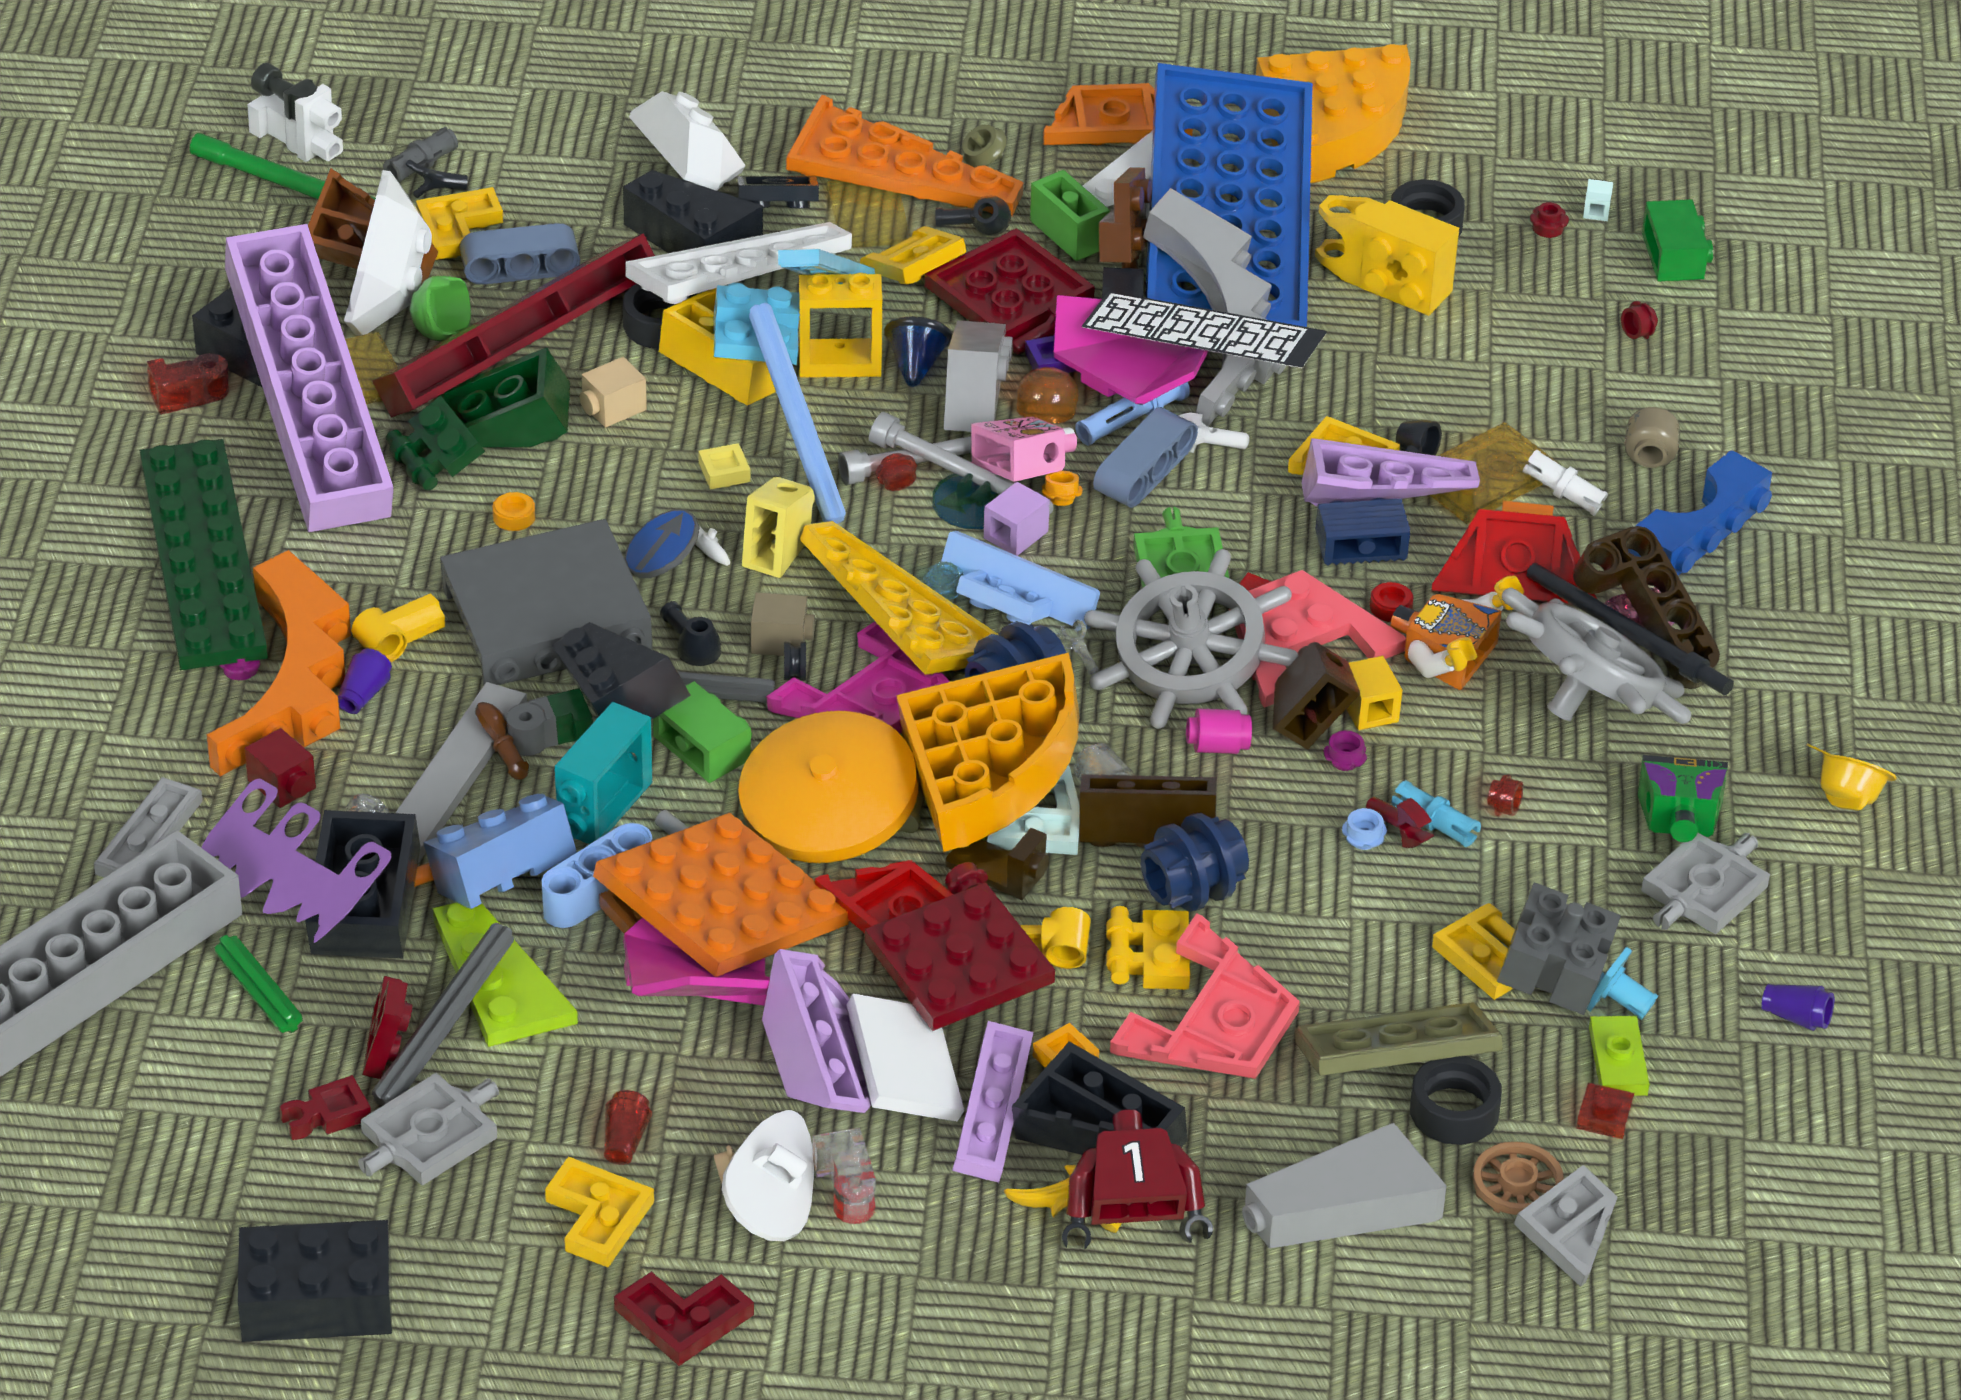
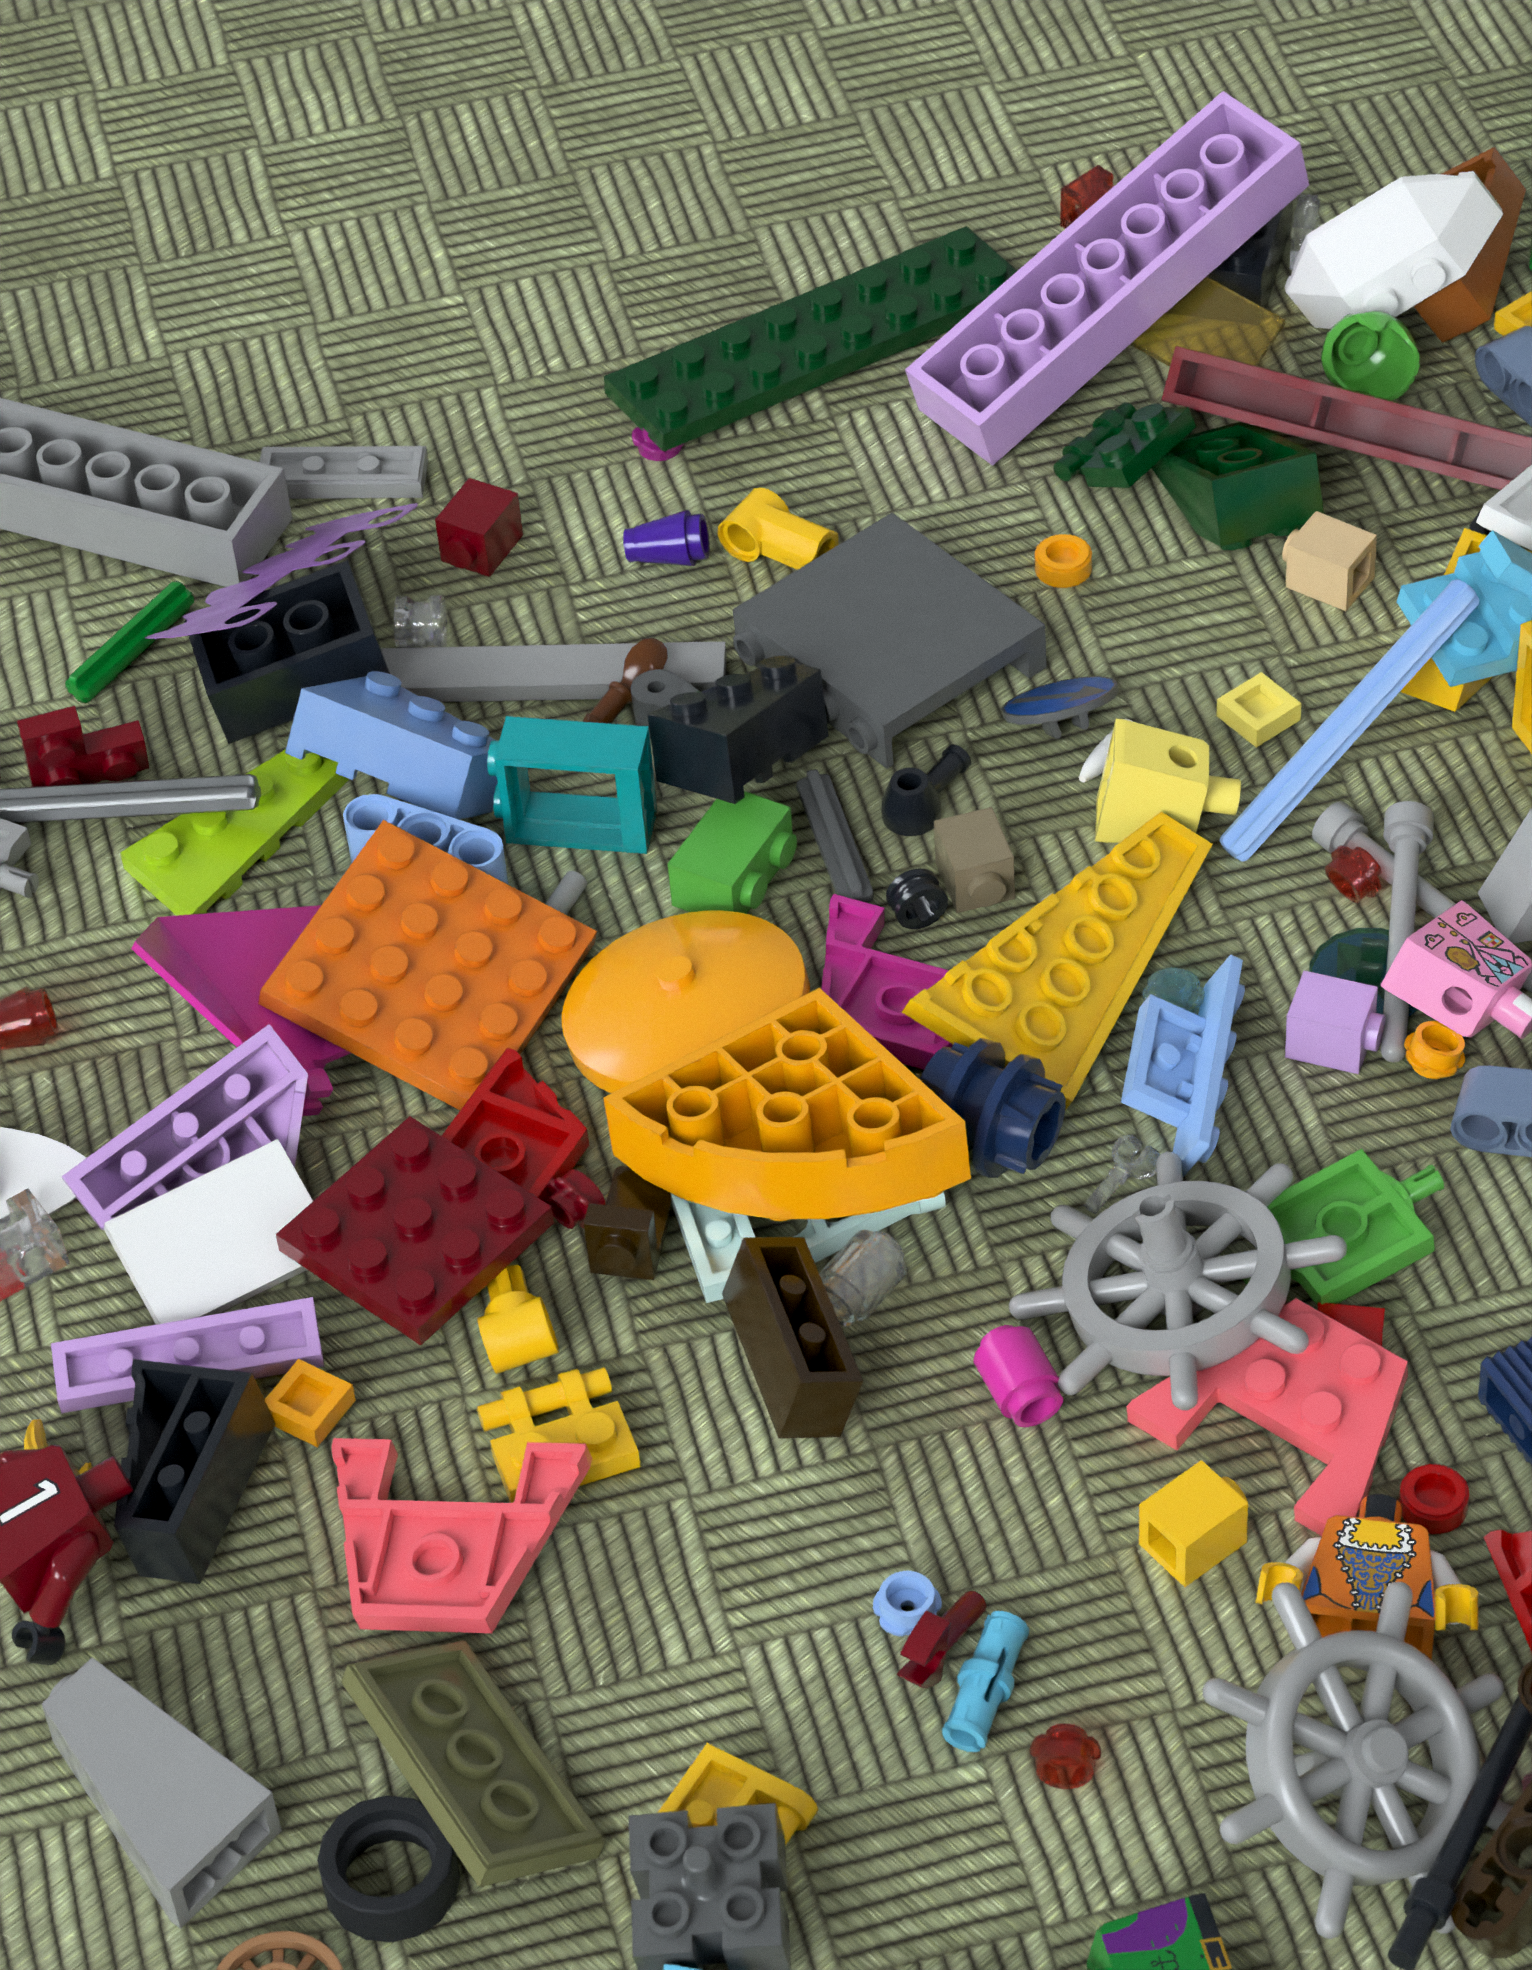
camera: 75 degrees right, 5 degrees up
(302, 693) = (599, 498): orange arch -> none
(1194, 862) = (697, 1415): dark blue piece -> none
(1312, 694) = (1132, 1443): dark brown torso -> none
(1346, 750) = (1063, 1520): magenta plate -> none

